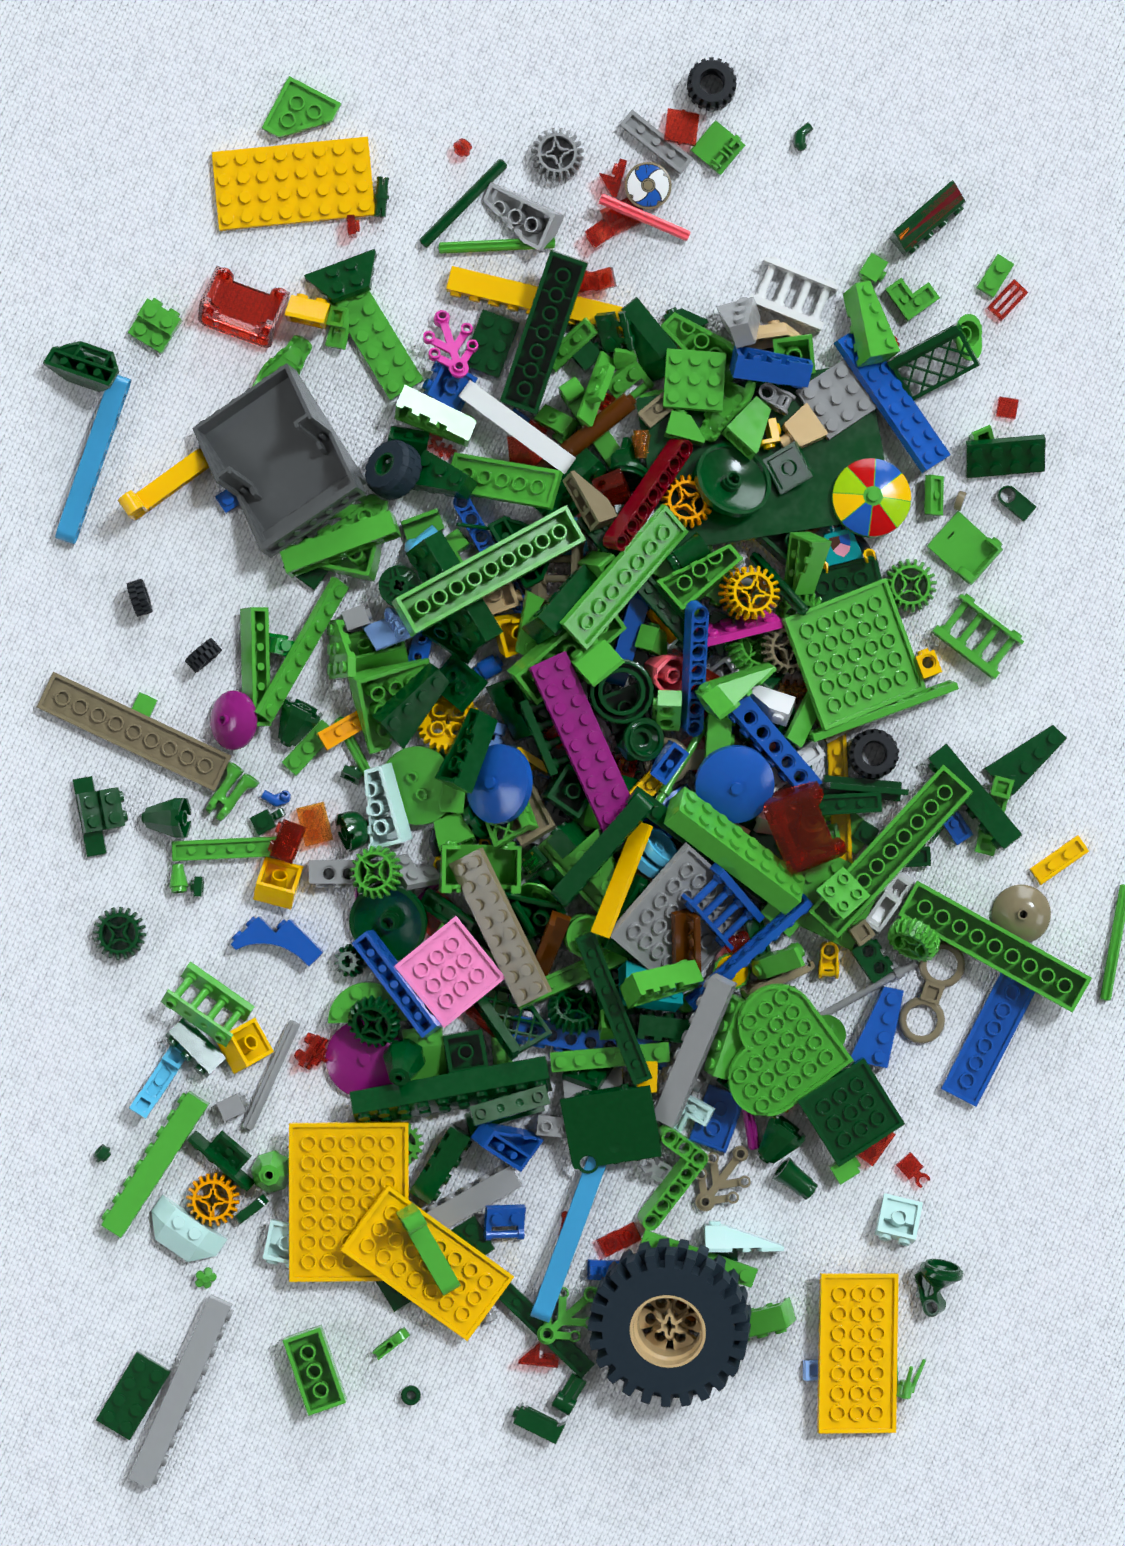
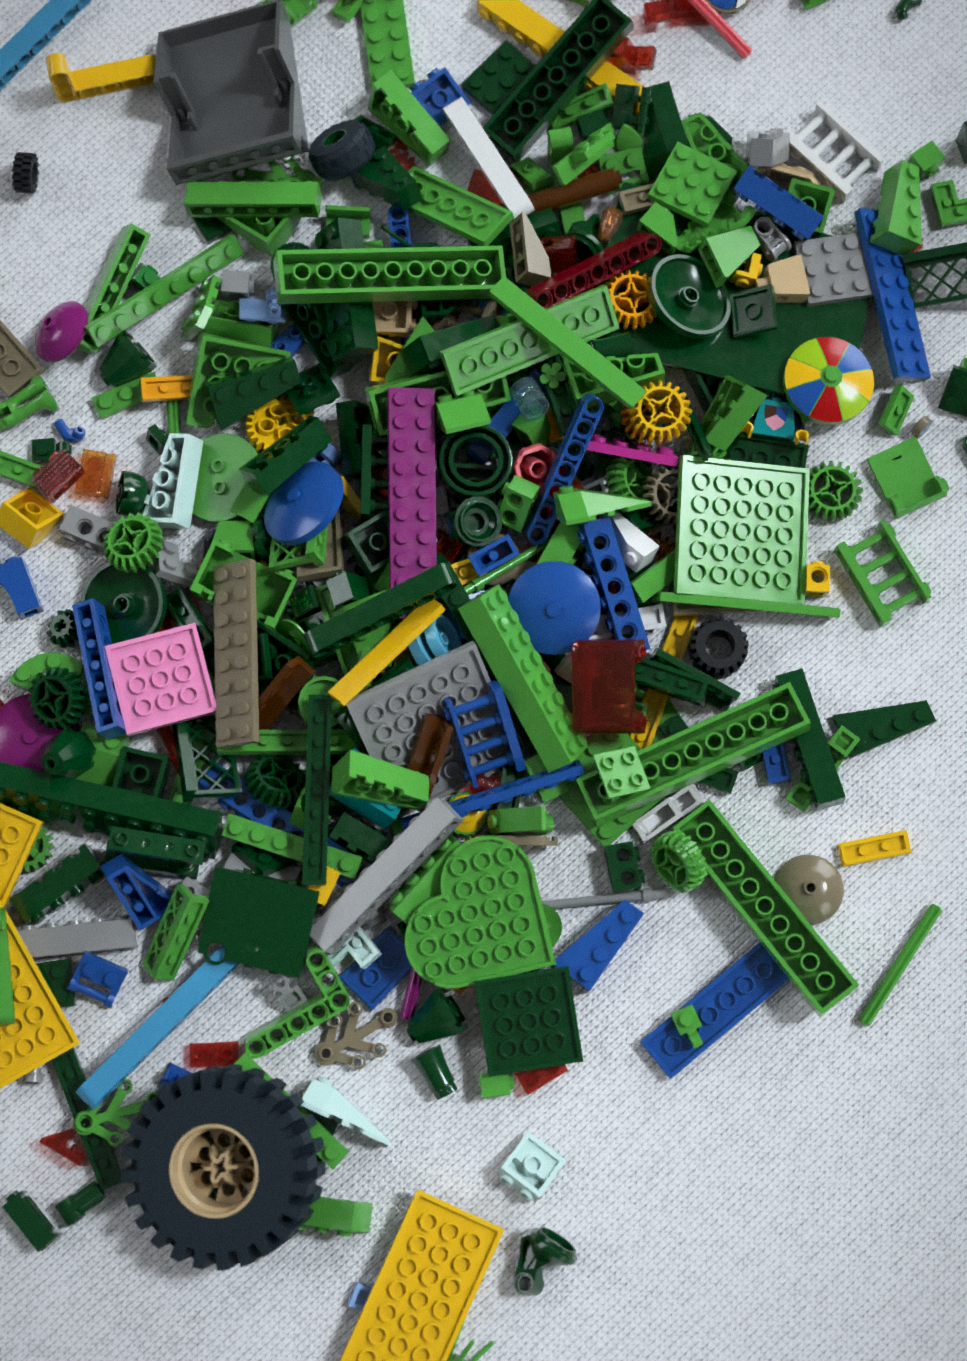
camera: 30 degrees right, 10 degrees down
(203, 655) = (62, 255): black tyre -> none
(227, 501) = (161, 120): blue plate -> none
(450, 346) = (453, 78): dark pink plant -> none
(489, 666) = (351, 390): blue brick -> none
(552, 1166) = (176, 937): none -> bright green fence
(642, 621) = (529, 398): none -> clear light blue wheel
(652, 596) = (552, 375): none -> bright green plant
(657, 571) = (567, 343): none -> bright green tile
(828, 961) = (574, 849): yellow piece -> none
(861, 932) = (624, 830): dark tan plate -> none
(911, 1167) = (569, 1116): clear red plate -> none
(931, 996) = (672, 935): dark tan bar -> none
(971, 1059) = (687, 1023): none -> bright green plate

